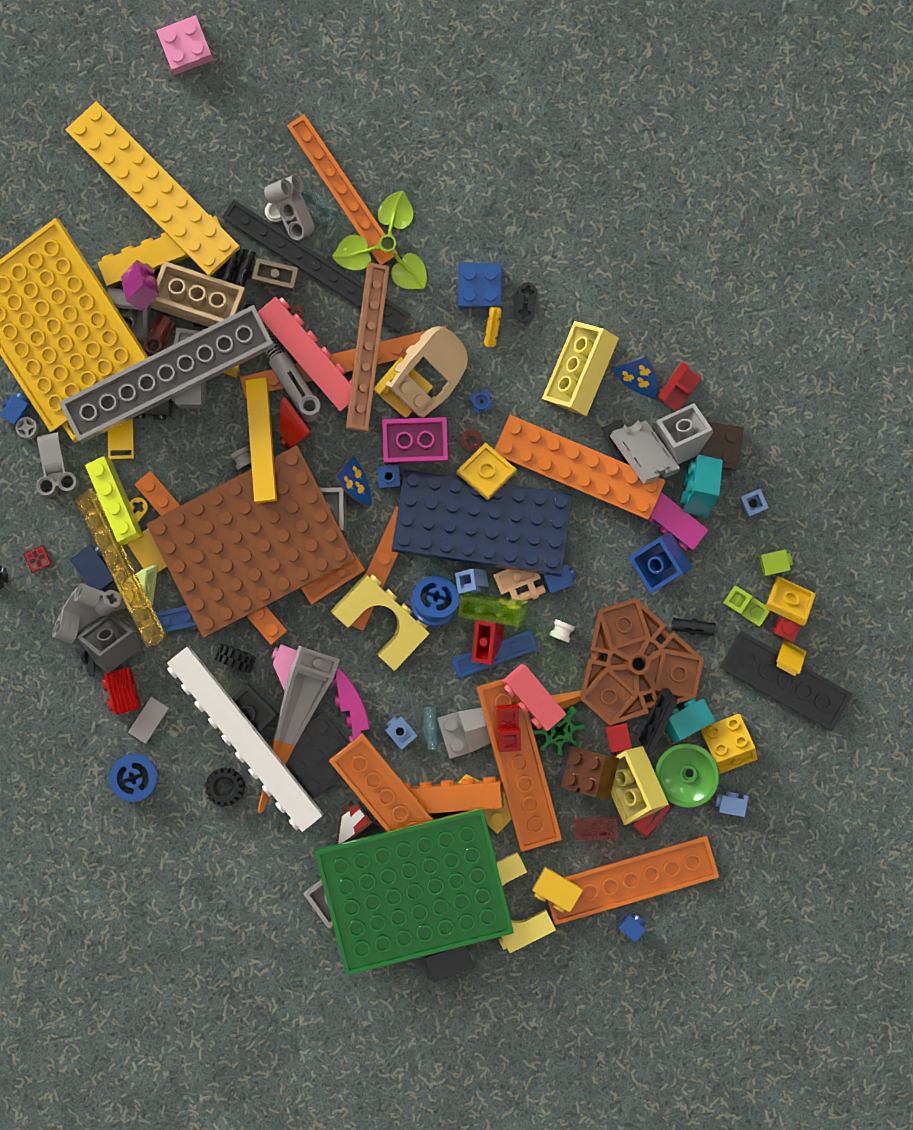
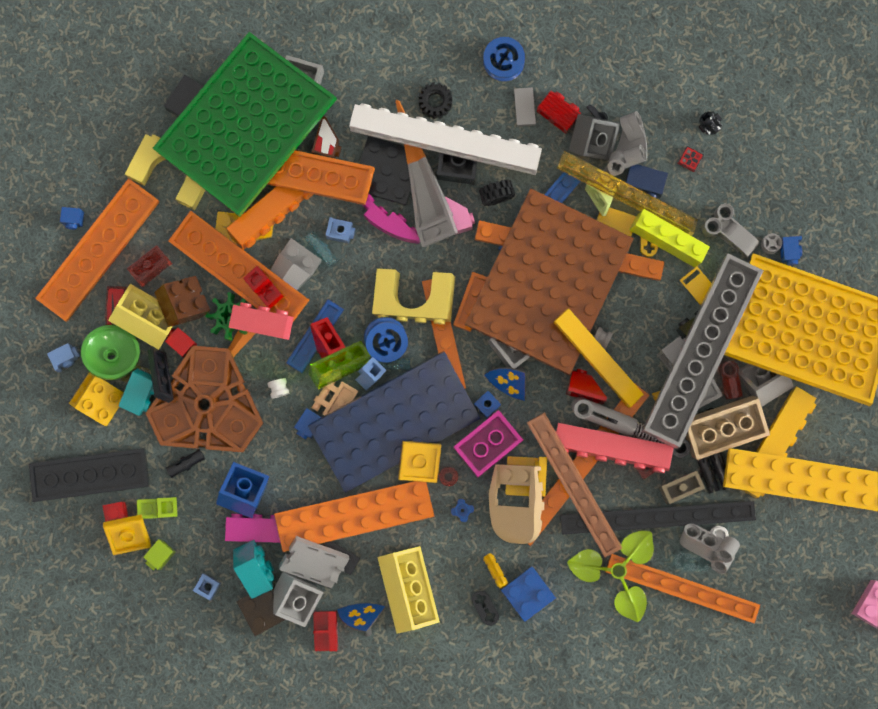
camera: 135 degrees right, 5 degrees down
(140, 285) = (772, 402): magenta brick -> none
(557, 890) = (144, 201): yellow brick -> none
(790, 658) = (95, 492): yellow piece -> none

